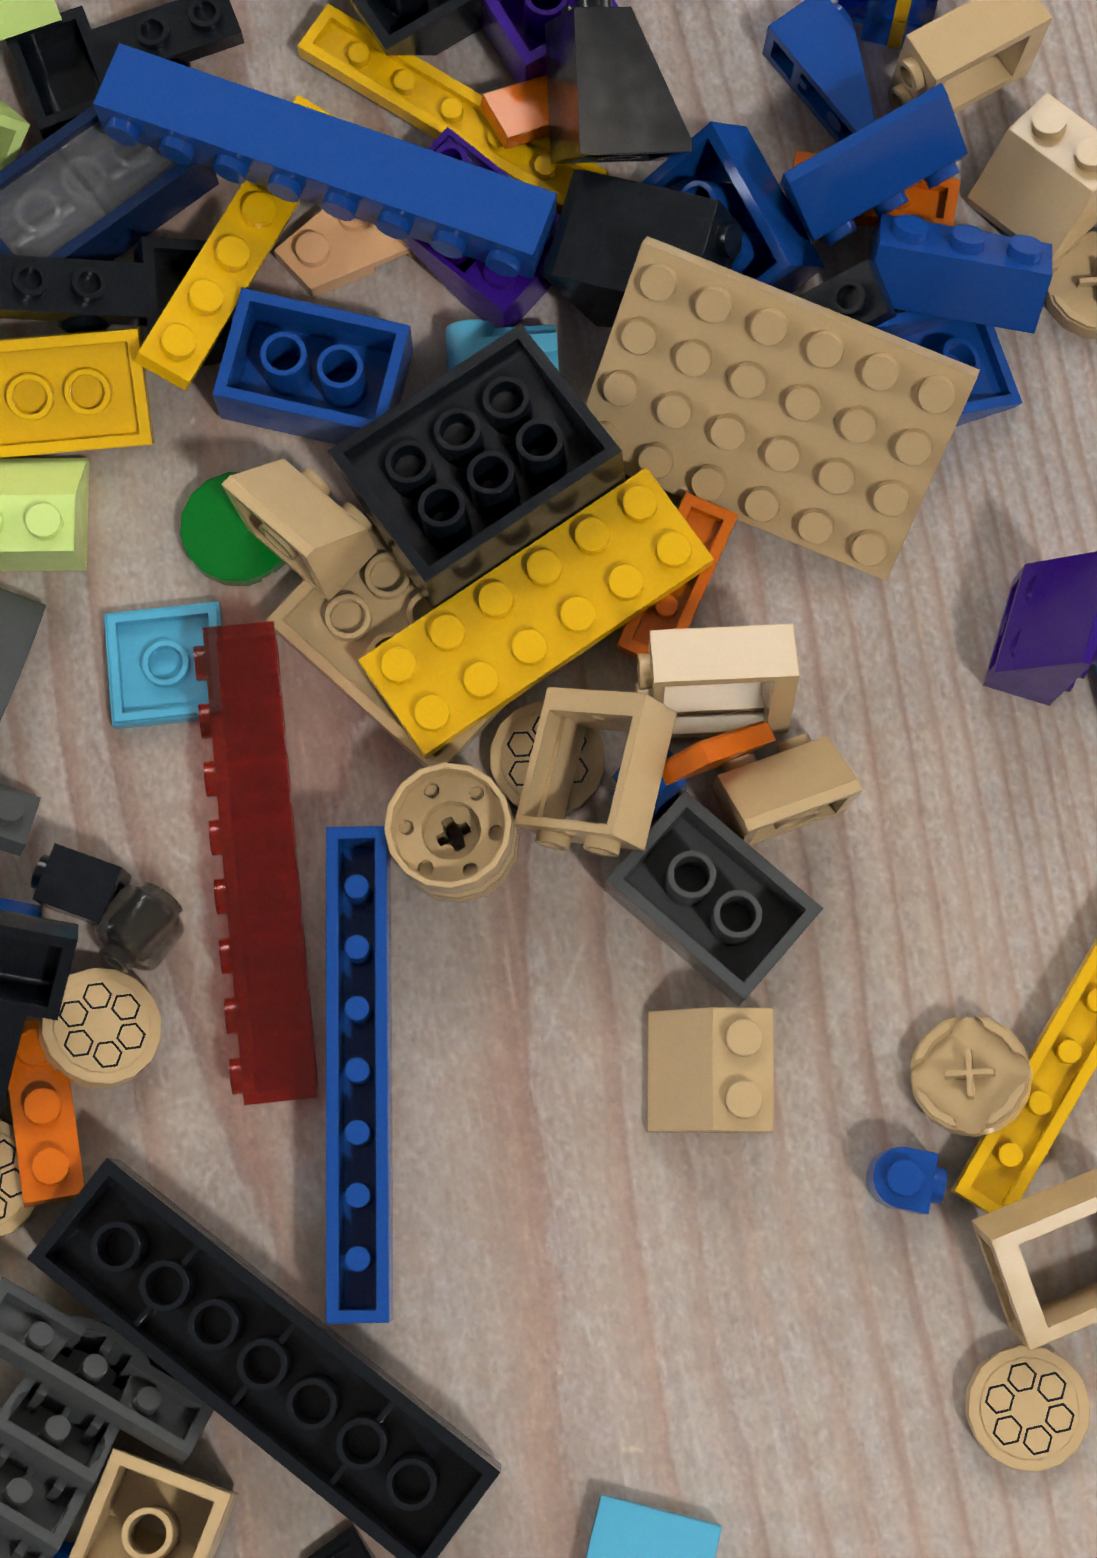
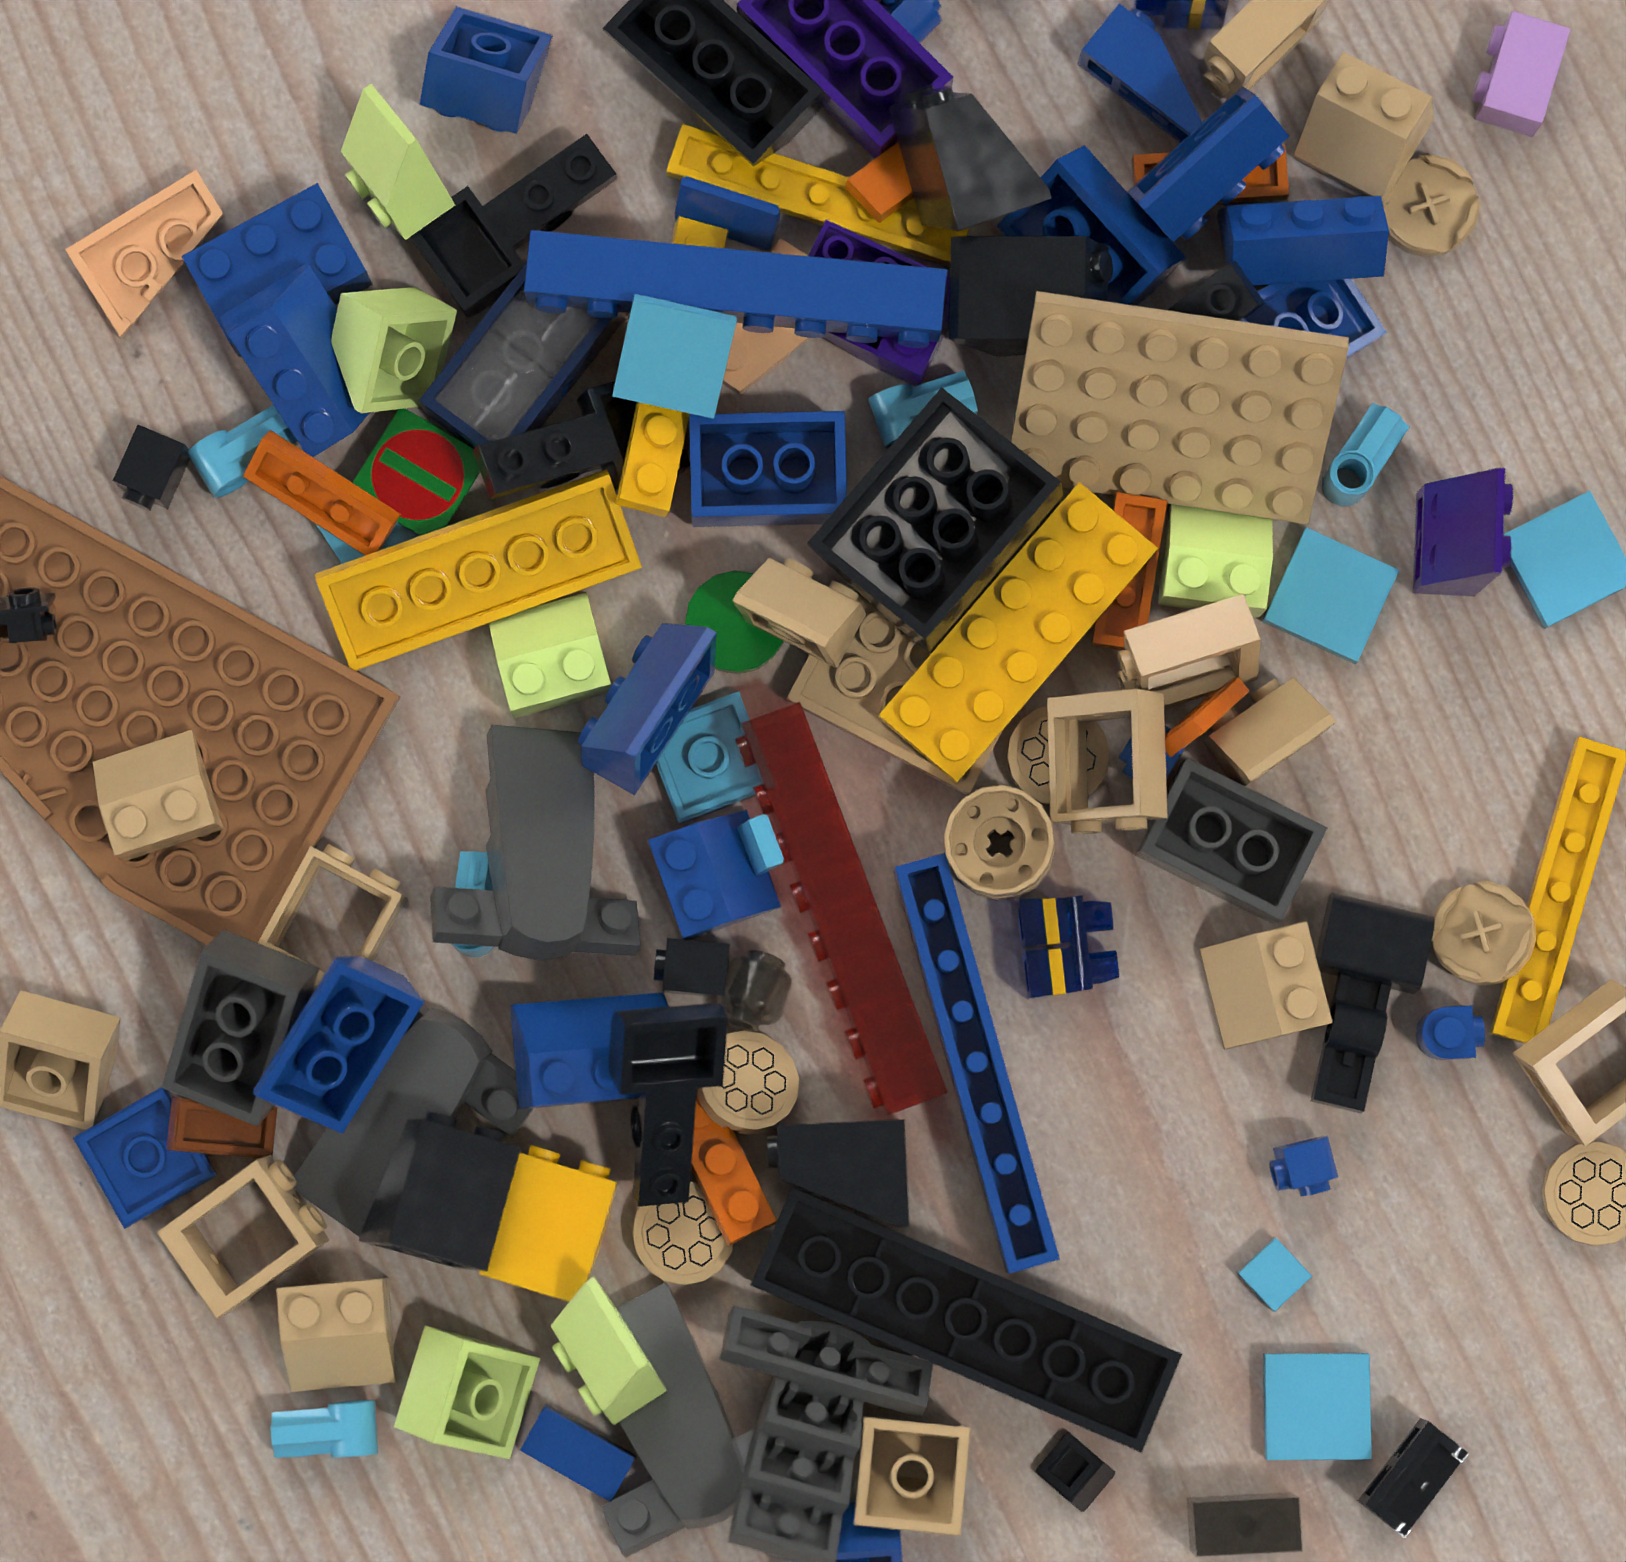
camera: 15 degrees left, 5 degrees up
(111, 586) = (648, 704): none -> blue slope
(130, 789) = (711, 876): none -> blue slope
(180, 1149) = (848, 1163): none -> black slope
(189, 767) = (760, 844): none -> medium azure tile
(236, 213) = (674, 356): none -> medium azure tile
(349, 96) = (744, 217): none -> blue slope
(500, 942) = (1061, 923): none -> clear blue hips
(636, 1404) = (1274, 1274): none -> medium azure tile
(702, 1288) = (1304, 1166): none -> blue plate
(776, 583) = (1216, 558): none -> yellowish green slope
(838, 1067) = (1371, 953): none -> black plate
(891, 663) = (1330, 595): none -> medium azure tile
(965, 521) = (1364, 453): none -> medium azure piece

